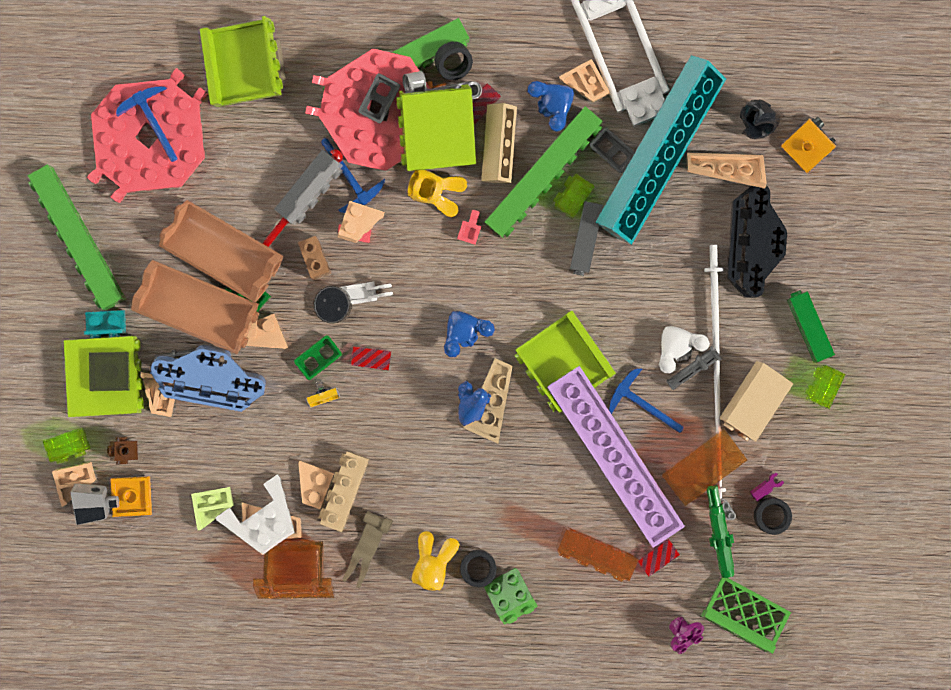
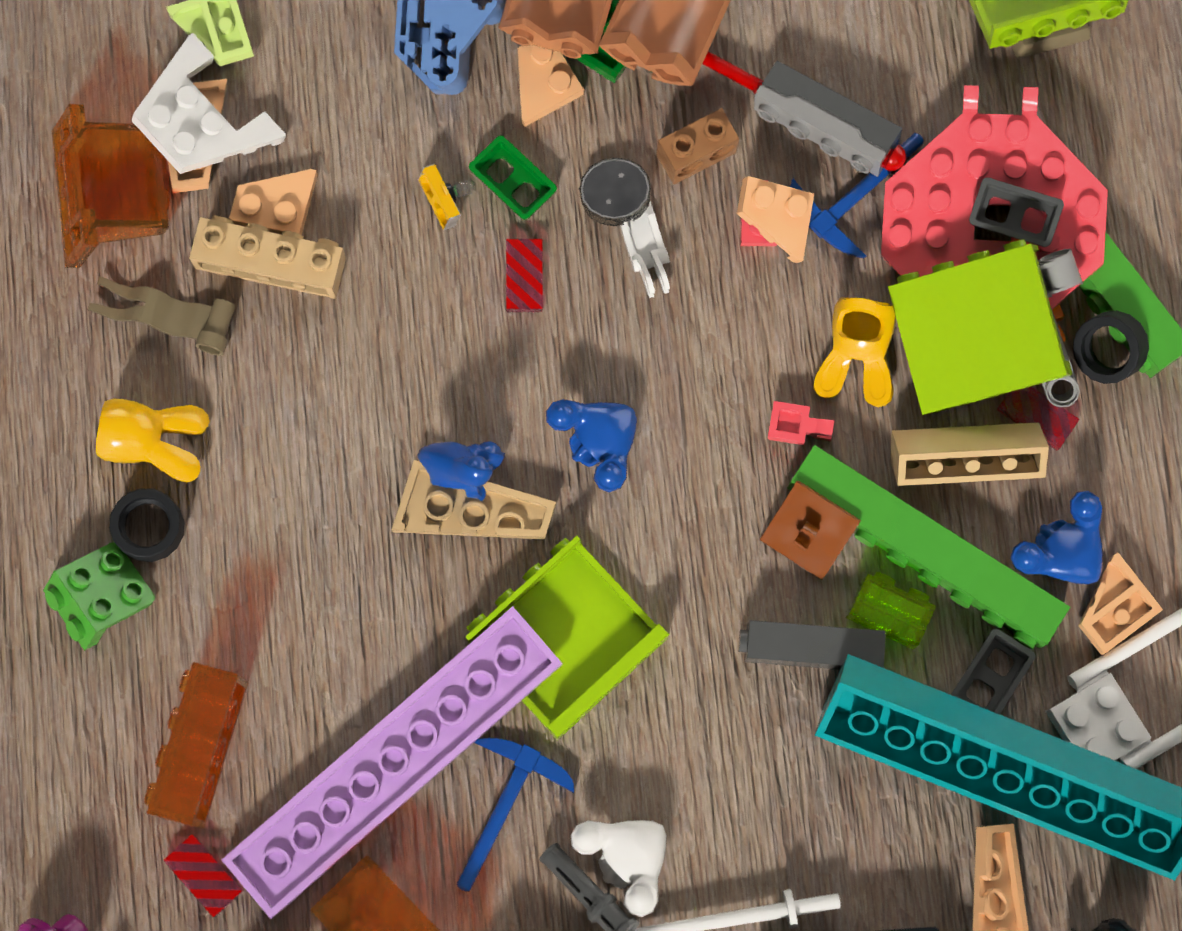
camera: 75 degrees right, 10 degrees down
(527, 230) = (810, 530): none -> dark orange piece

